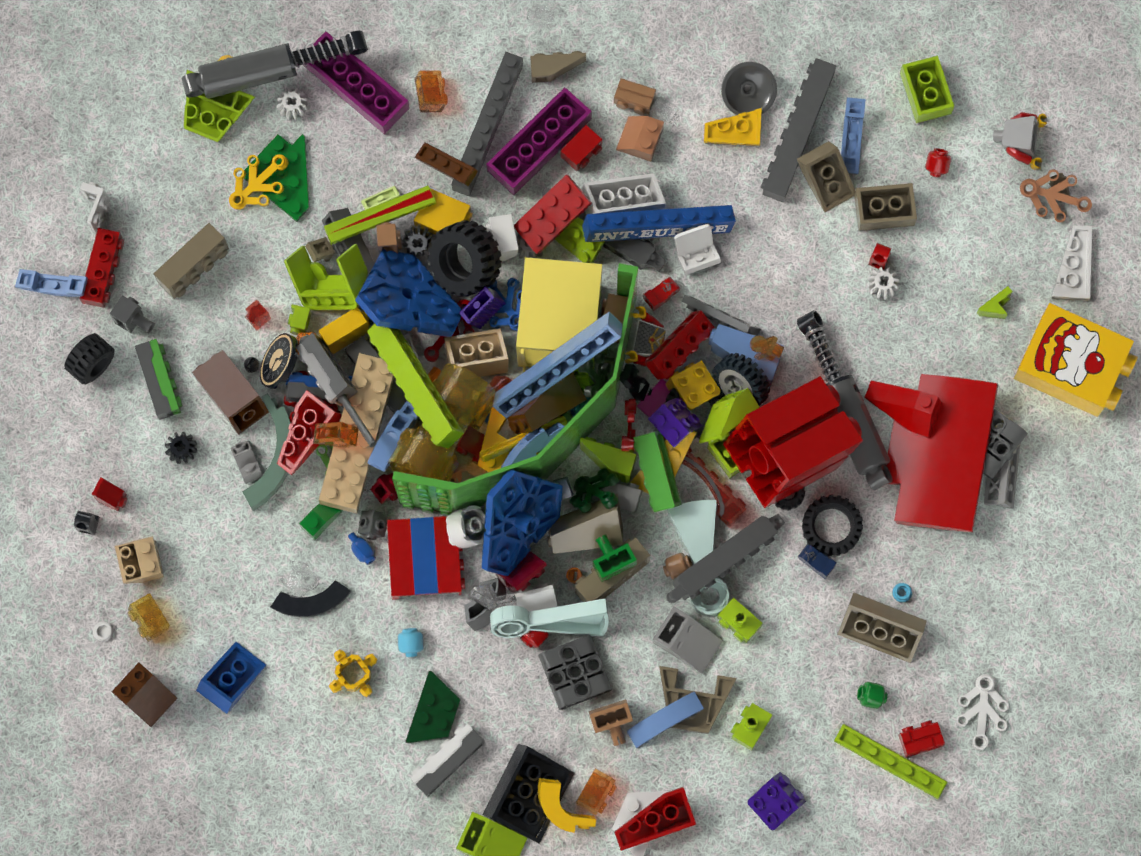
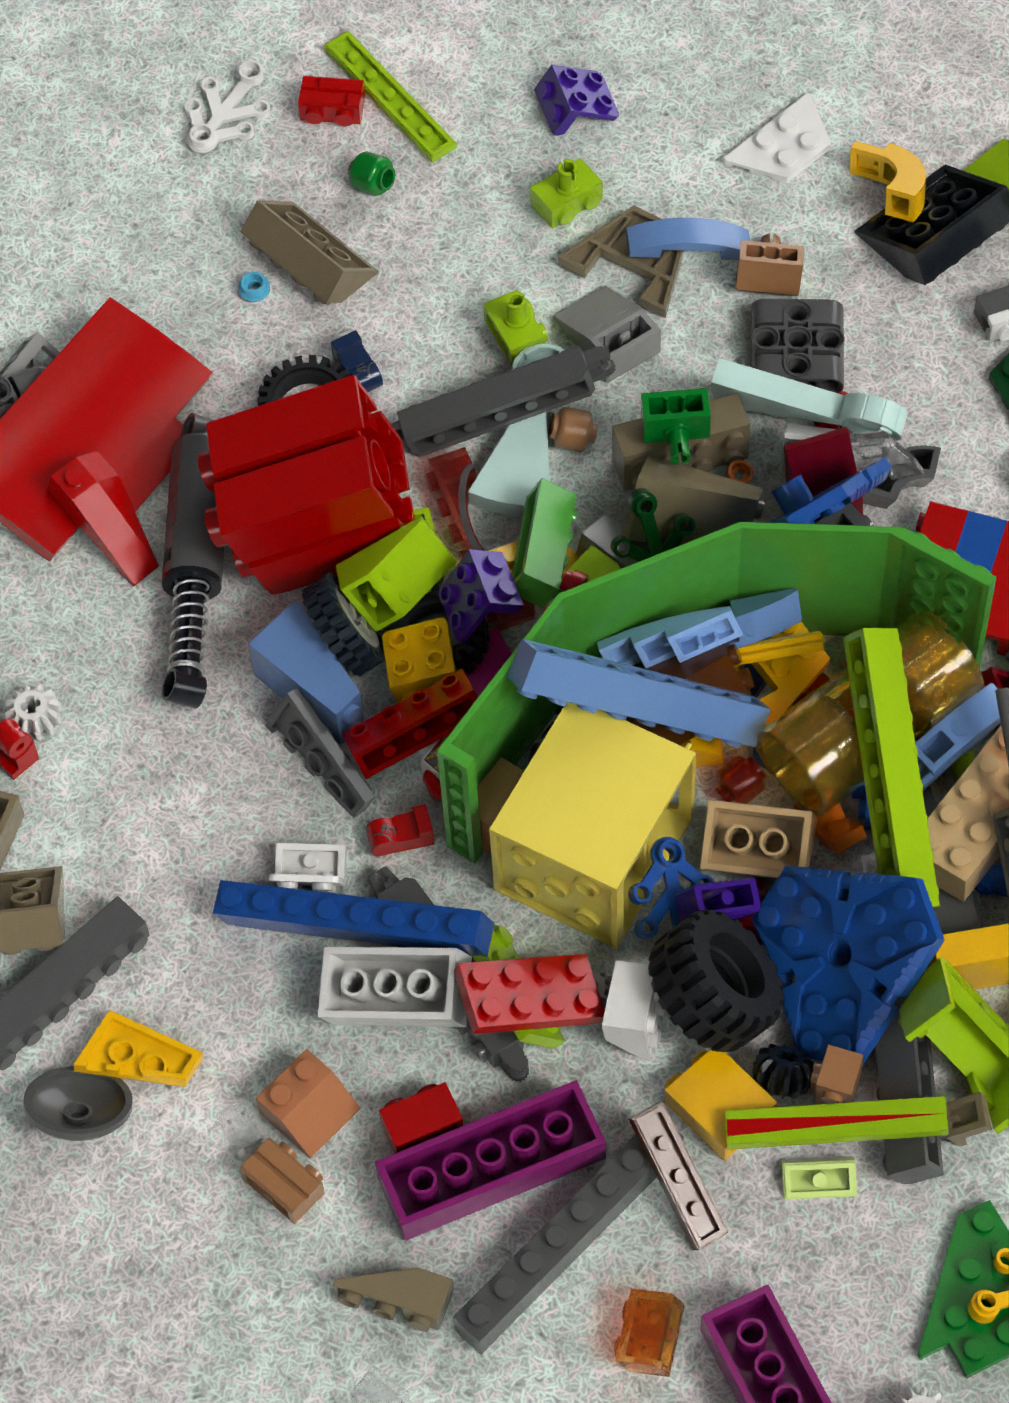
camera: 155 degrees left, 15 degrees down
(554, 417) = (672, 636): none -> light blue slope
(595, 792) = (834, 189): clear orange brick -> none
(661, 817) = (751, 114): red wedge -> none
(766, 348) = (280, 626): clear orange hips -> none

